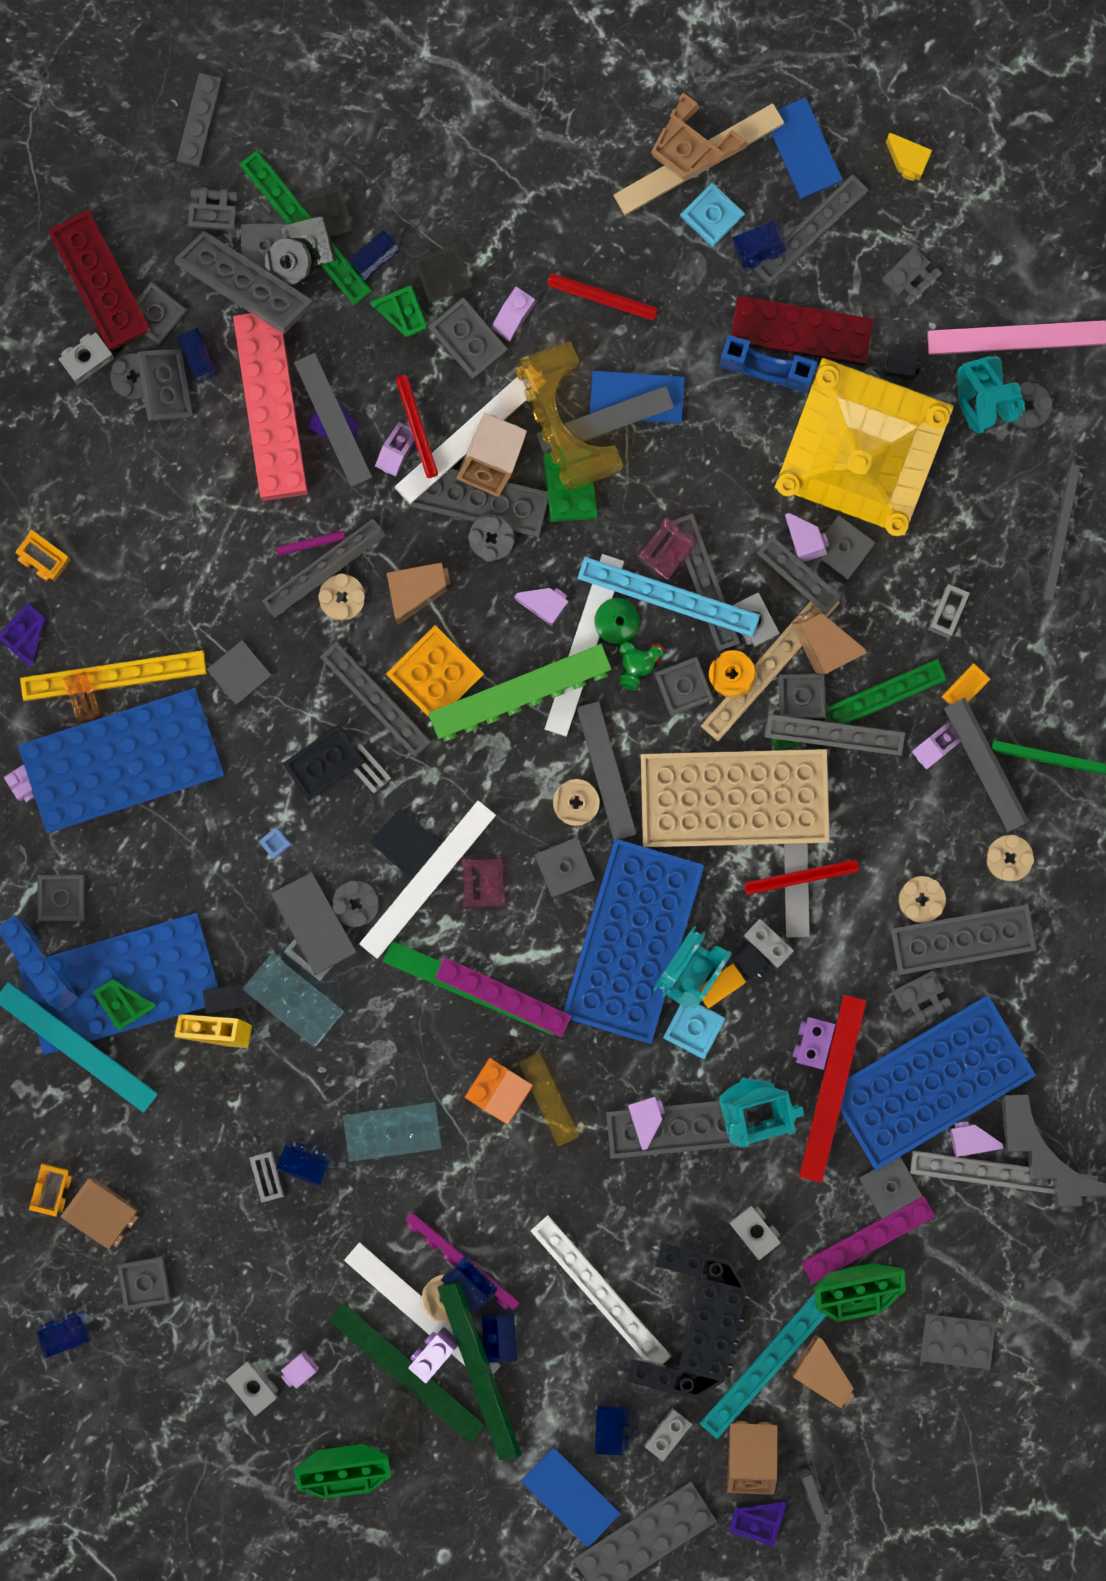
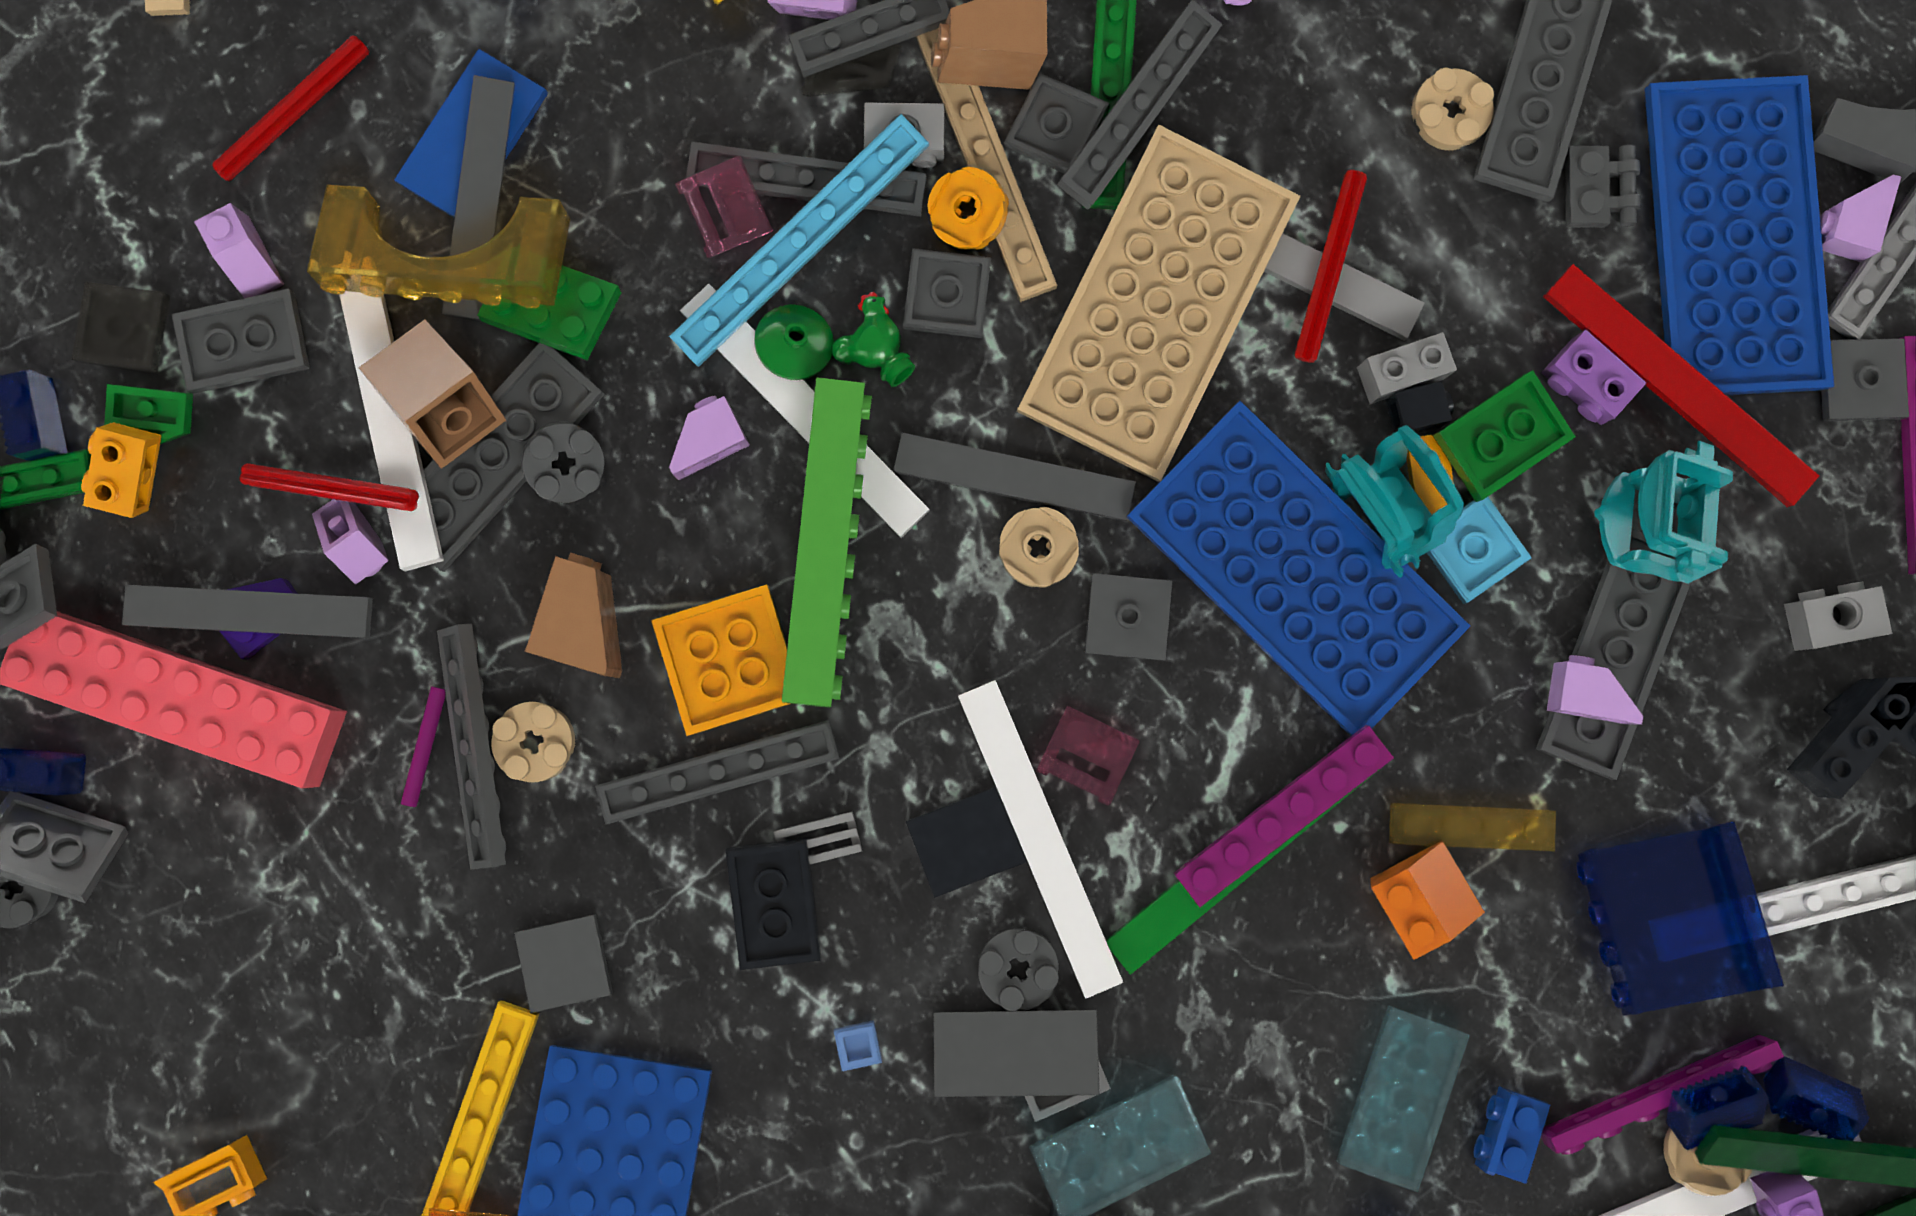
camera: 65 degrees left, 0 degrees up
(370, 317) = (121, 469): none -> light orange brick
(402, 1197) = (1511, 1134): none -> blue bracket
(553, 1223) = (1678, 919): none -> clear blue panel
(759, 1012) = (1504, 436): none -> green plate

